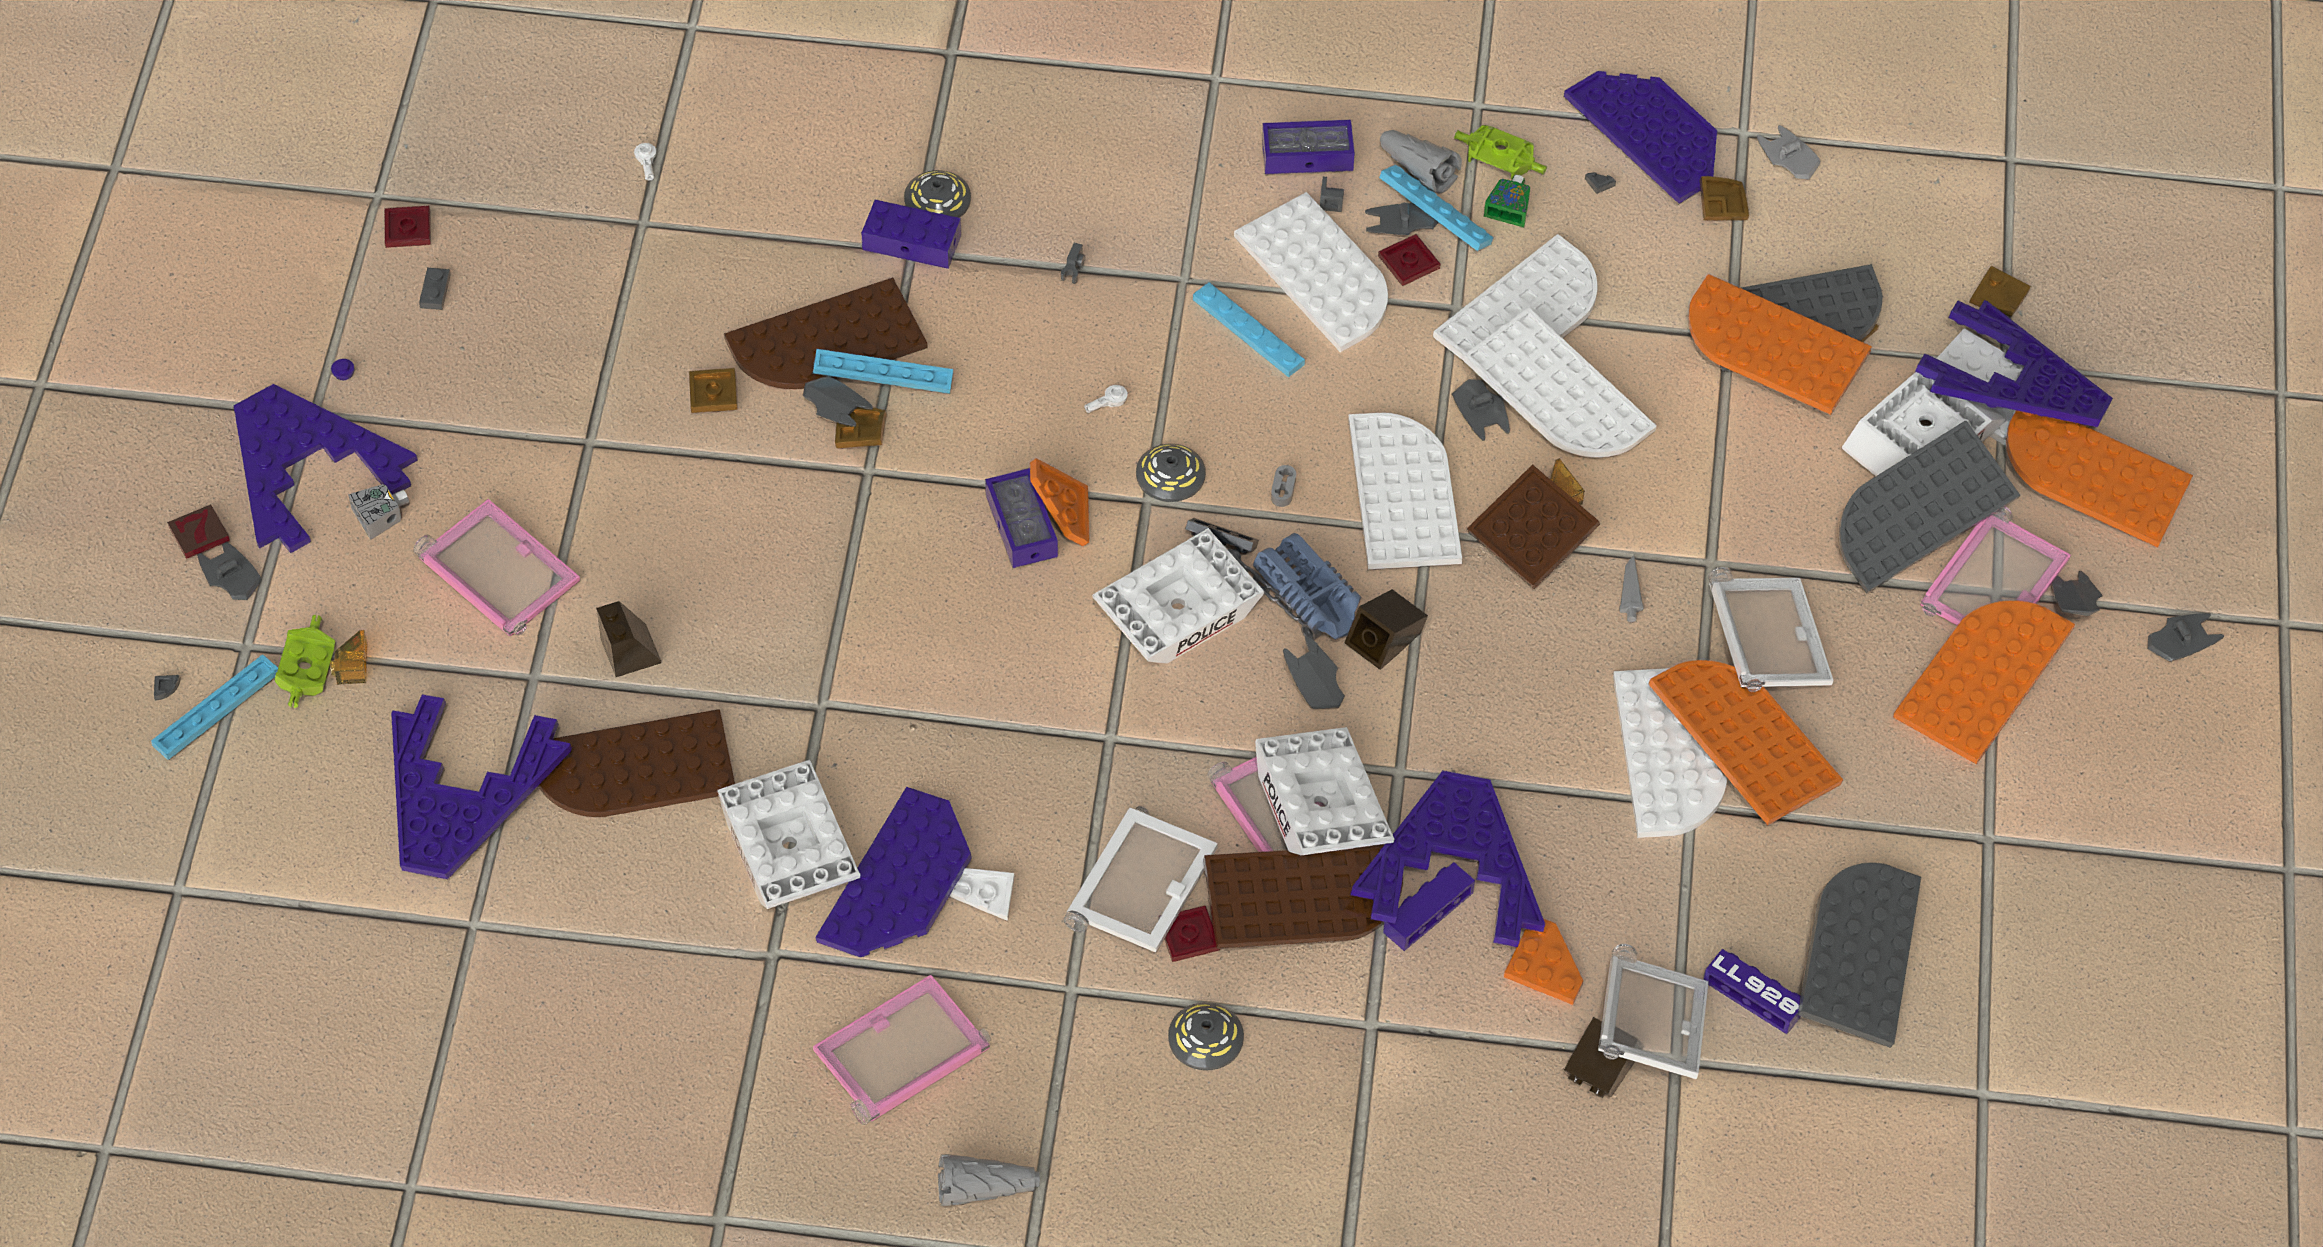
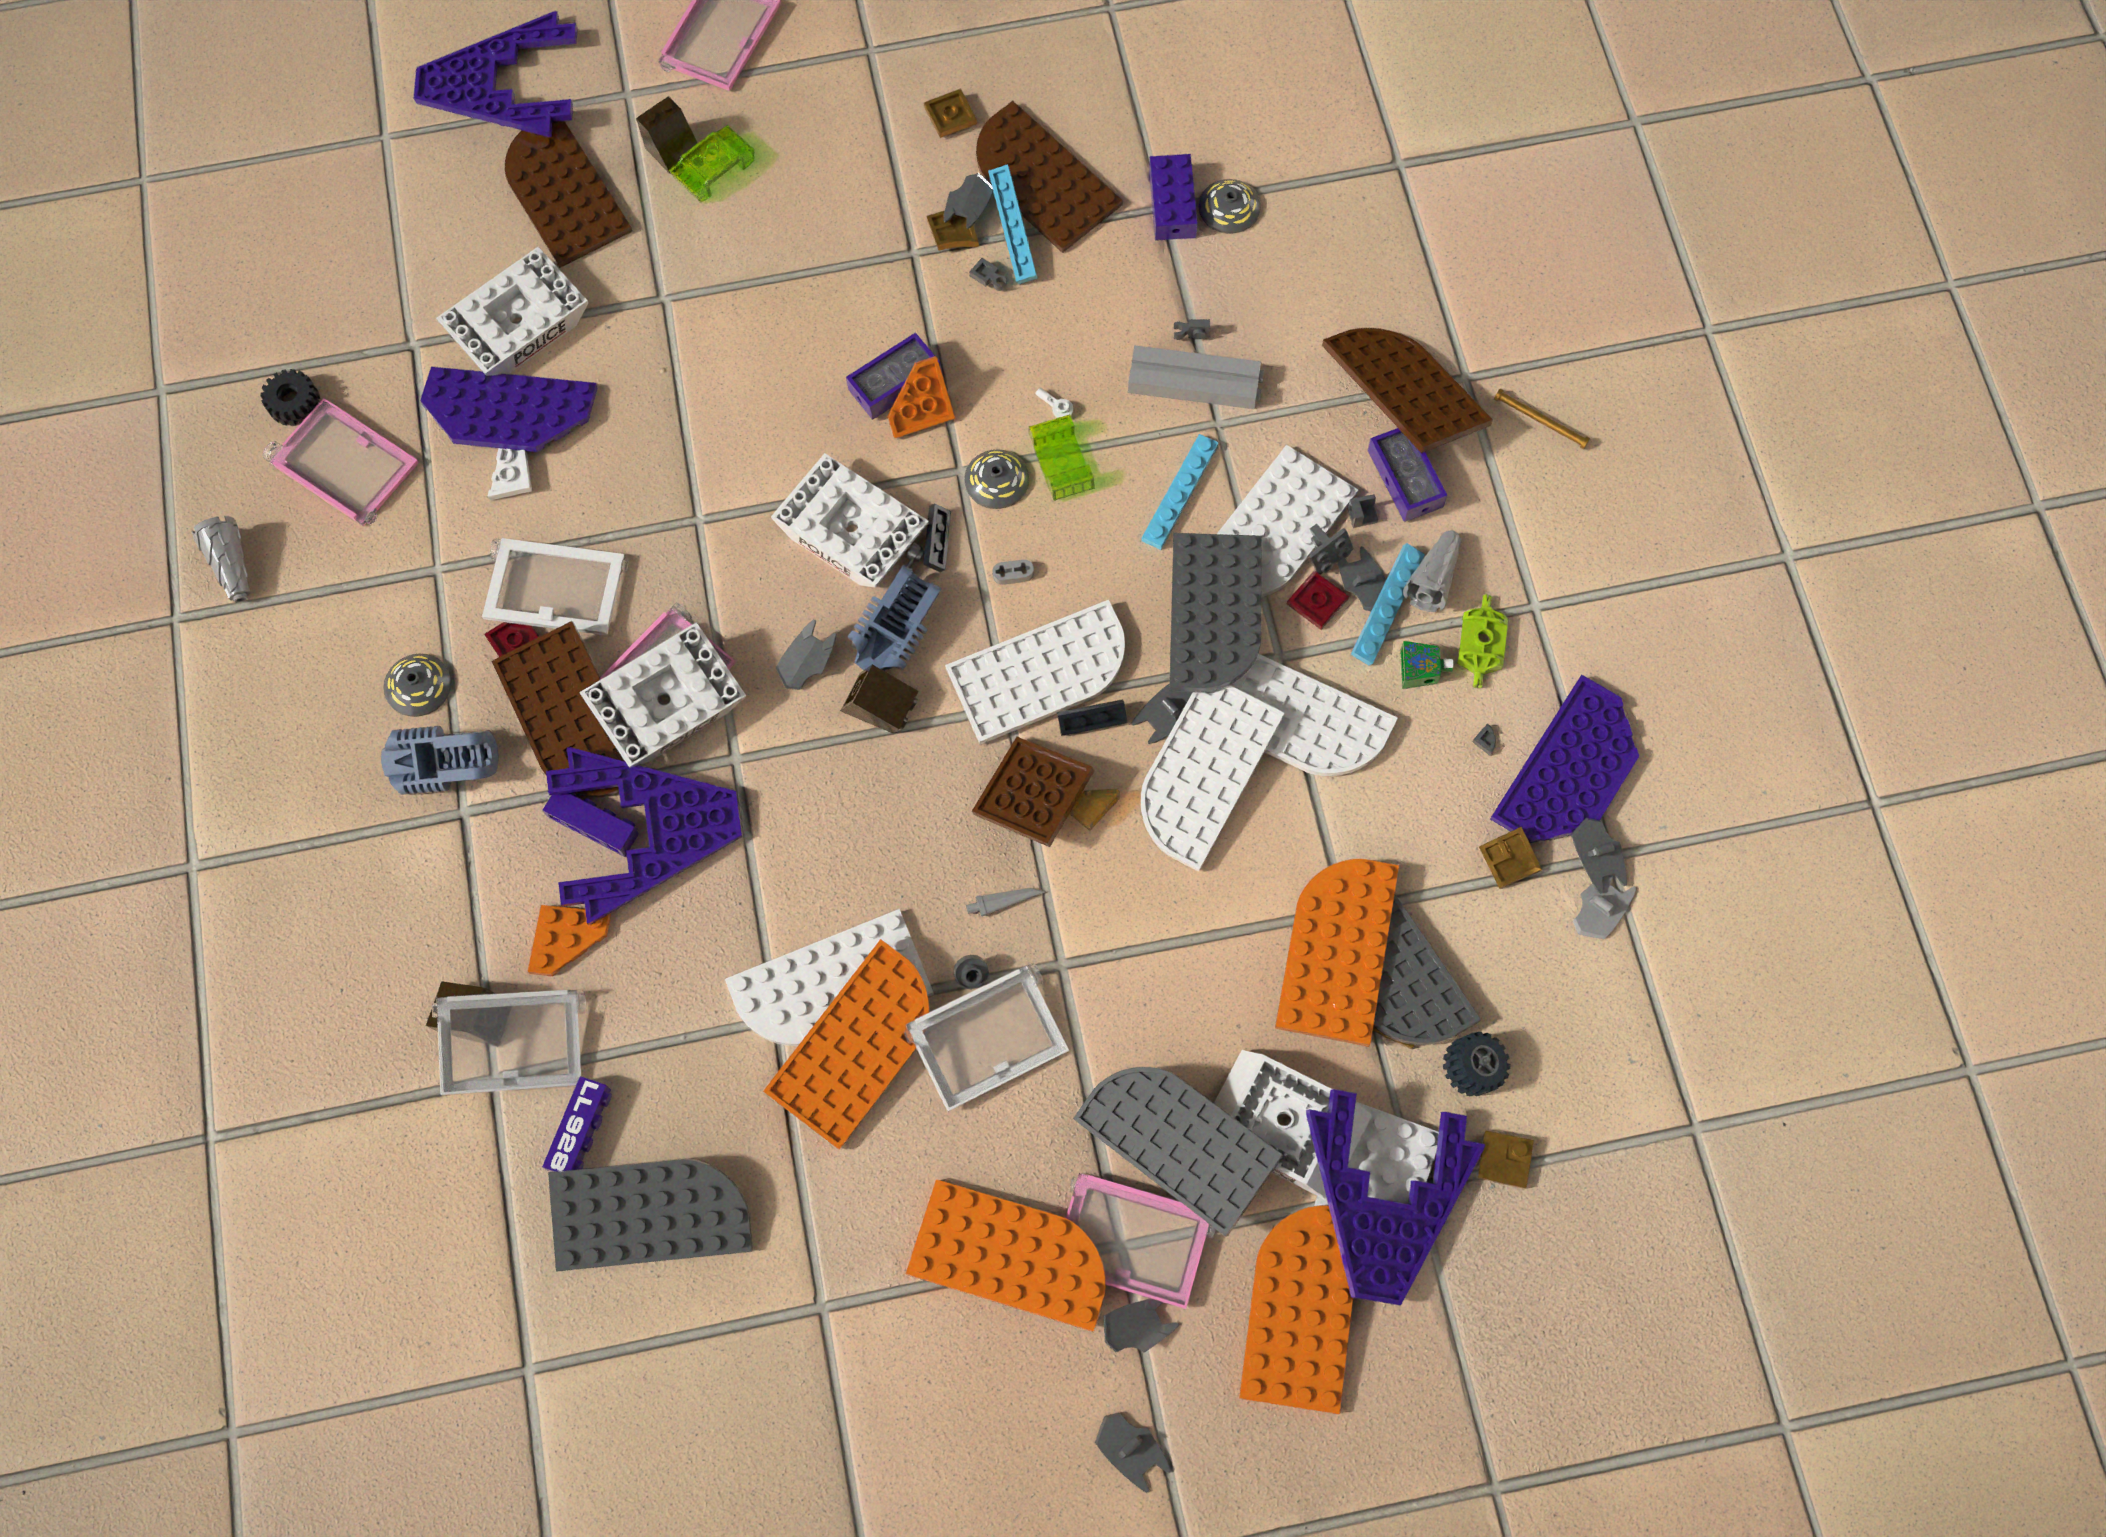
camera: 75 degrees right, 15 degrees up
(676, 612) = (711, 160): none -> clear neon green plate
(800, 1096) = (292, 410): none -> black tyre
(927, 414) = (987, 273): none -> dark grey plate
(1128, 279) = (1195, 377): none -> light grey brick
(1174, 411) = (1061, 457): none -> clear neon green plate
(1217, 114) = (1408, 386): none -> reddish brown plate
(1250, 57) = (1583, 441): none -> pearl gold bar
(1309, 1026) = (429, 760): none -> sand blue connector
(1366, 226) = (1328, 550): none -> dark grey bracket
(1398, 329) = (1214, 610): none -> dark grey plate
(1469, 464) = (1092, 717): none -> black plate
(1699, 628) = (971, 971): none -> dark grey plate
(1741, 135) = (1599, 853): none -> dark grey shield
(1912, 278) = (1476, 1064): none -> black wheel

